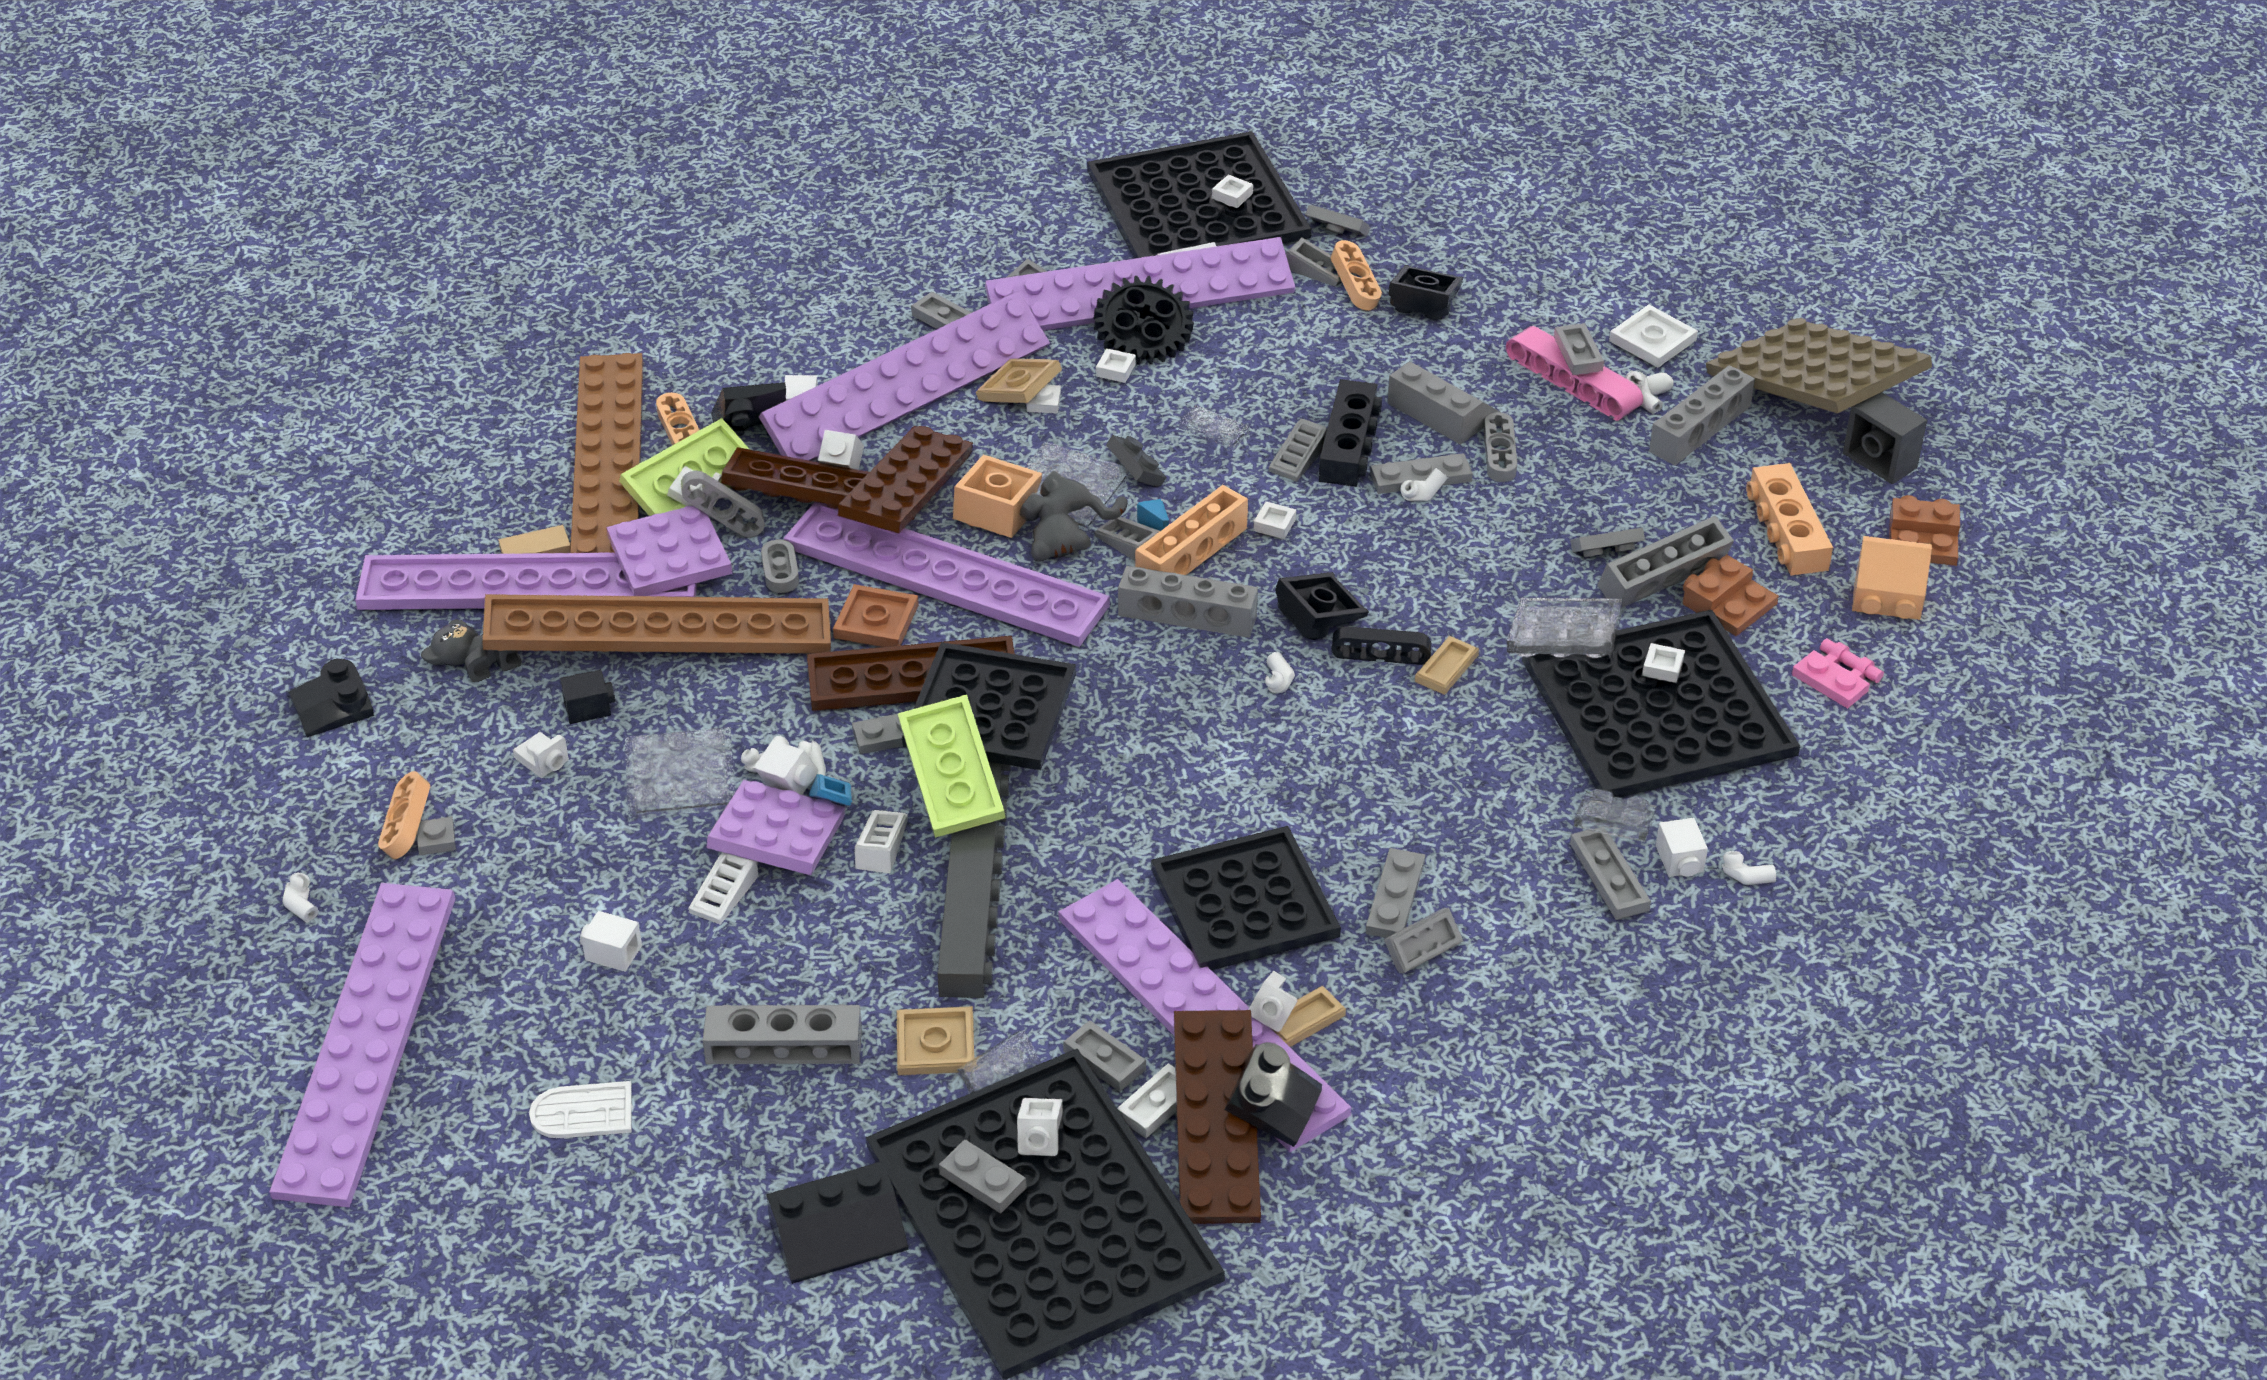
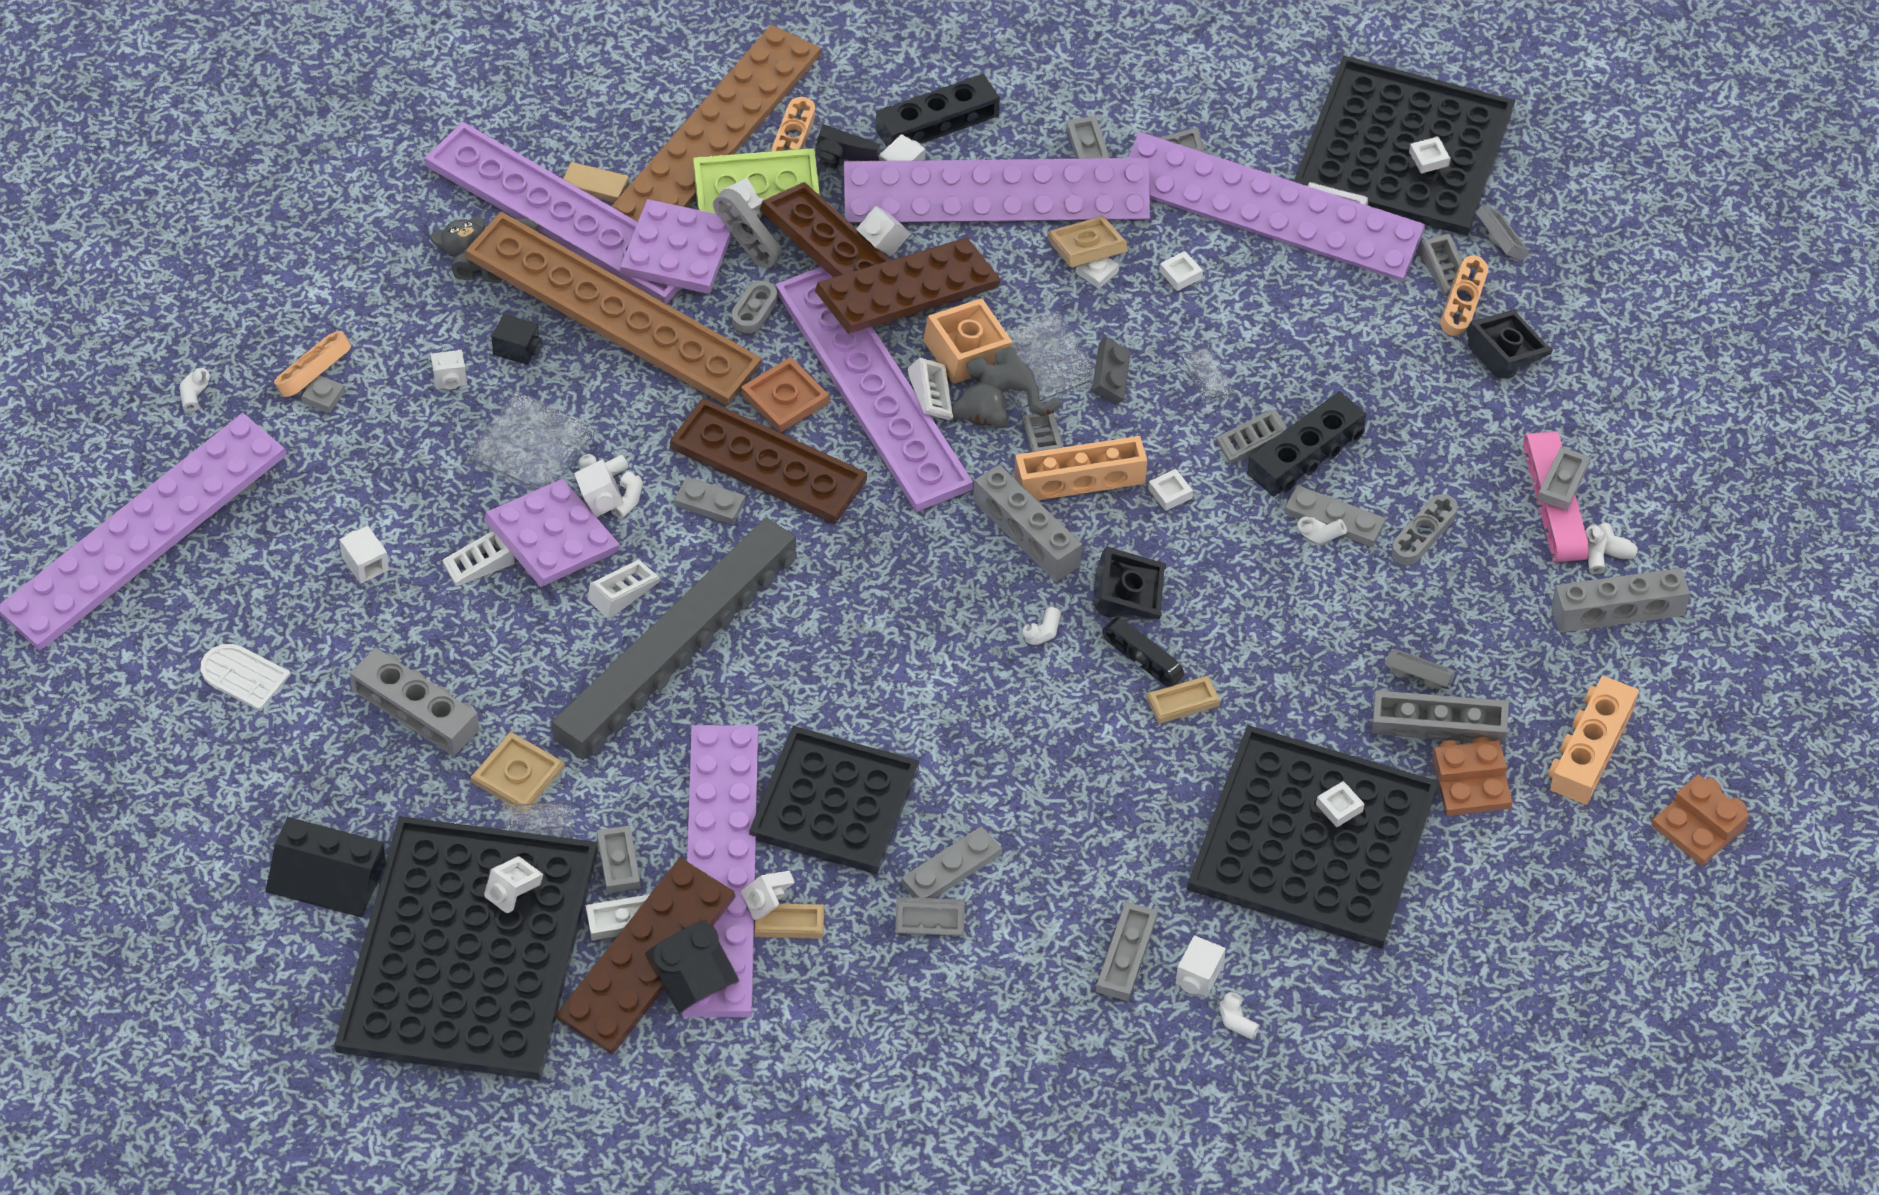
camera: 35 degrees right, 10 degrees up
(331, 699) = (343, 234): black slope -> none
(798, 345) = (939, 111): none -> black brick
(831, 790) = (614, 526): dark azure slope -> none
(951, 766) = (698, 560): yellowish green plate -> none
(982, 1176) = (444, 896): light grey plate -> none
(999, 544) = (931, 375): none -> white slope
(1010, 695) = (780, 526): black plate -> none
(1143, 319) = (1261, 227): black gear -> none
(1152, 514) = (1074, 429): dark azure slope -> none
(1437, 403) = (1415, 457): light grey slope -> none
(1565, 626) = (1296, 724): clear plate -> none
(1615, 816) = (1174, 908): clear plate -> none
(1653, 336) = (1663, 500): white plate -> none
(1822, 364) = (1758, 614): dark tan plate -> none
(1832, 679) = (1481, 903): bright pink plate -> none
(1885, 437) = (1749, 713): dark grey brick -> none
(1891, 577) = (1611, 846): light nougat slope -> none

